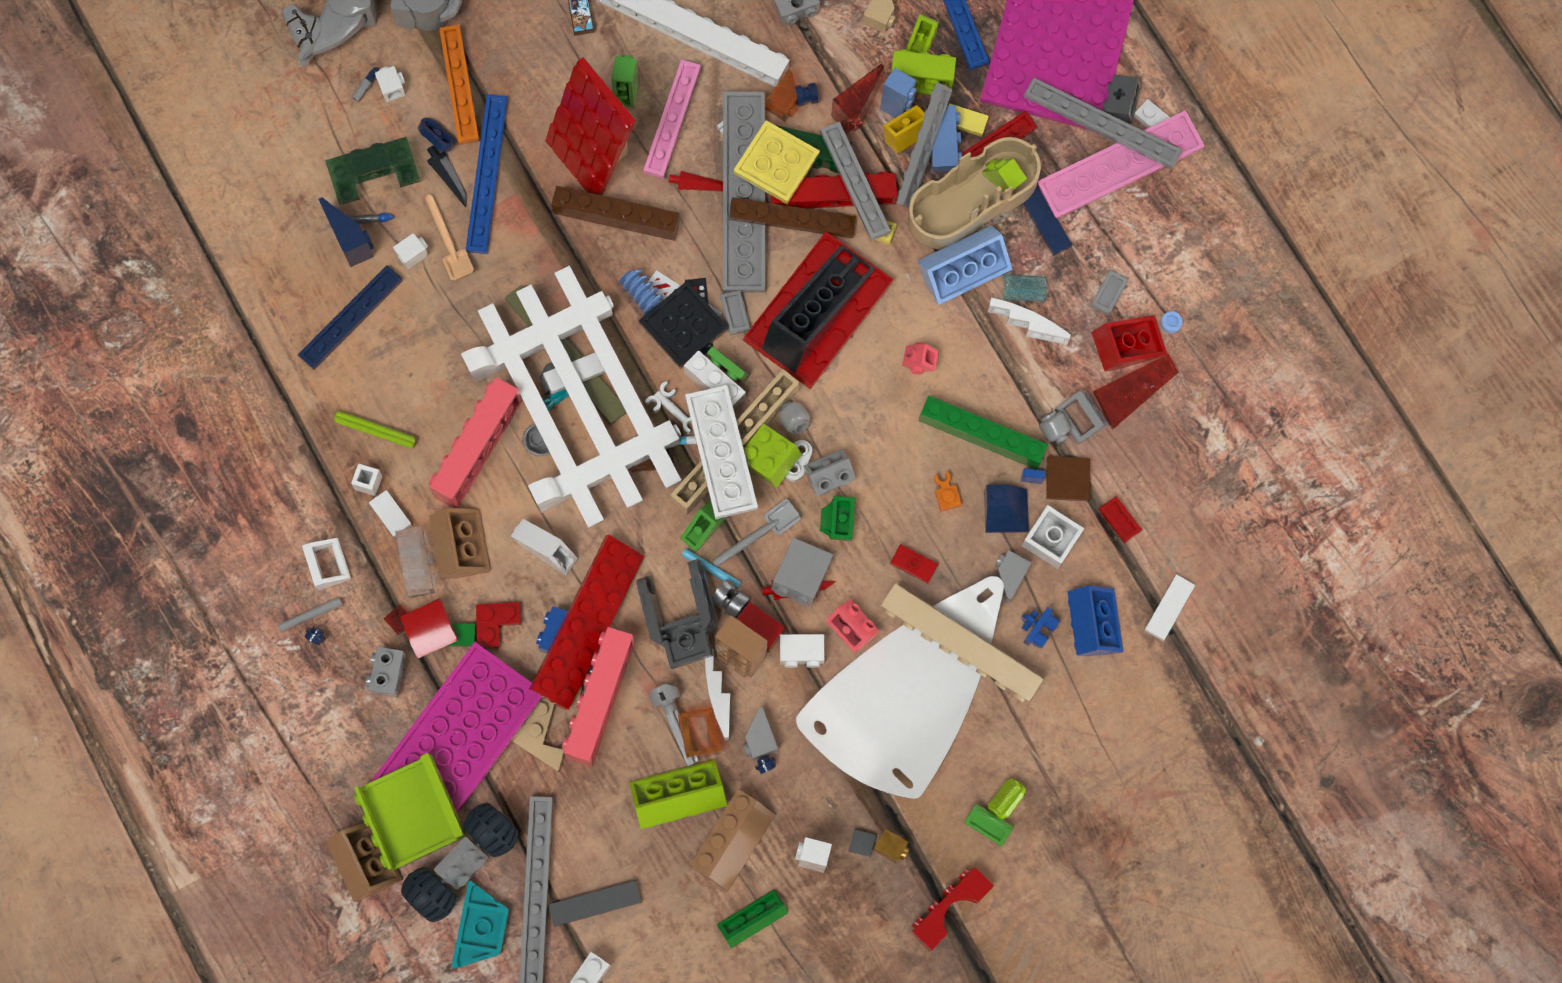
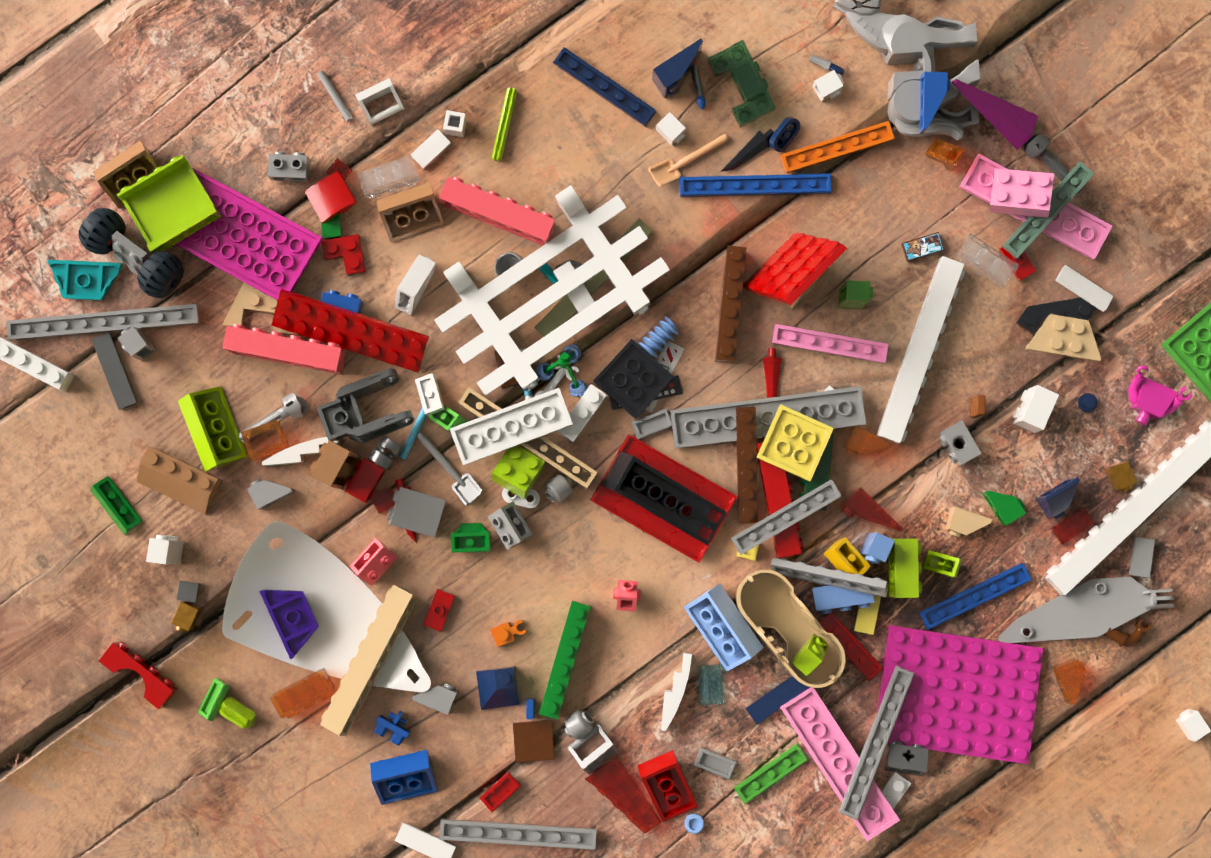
camera: 90 degrees right, 10 degrees up
(315, 635) = (315, 102): dark blue plate -> none
(566, 868) = (136, 343): none -> light grey brick
(647, 387) = (570, 355): none -> medium blue plant
(671, 544) = (429, 394): none -> white plate
(734, 370) = (596, 428): bright green plate -> none
(765, 764) = (245, 500): dark blue plate -> none
(784, 611) = (382, 500): none -> clear red tile
(802, 649) = (349, 520): white brick -> none
(806, 94) = (870, 463): dark blue wheel -> none
(905, 724) = (291, 617): none -> dark purple wing
(992, 722) = (303, 693): none -> clear orange brick
(1052, 537) = (474, 732): white brick -> none
(1125, 238) = (770, 773): none -> bright green tile
(1167, 506) = (518, 834): none -> light grey plate

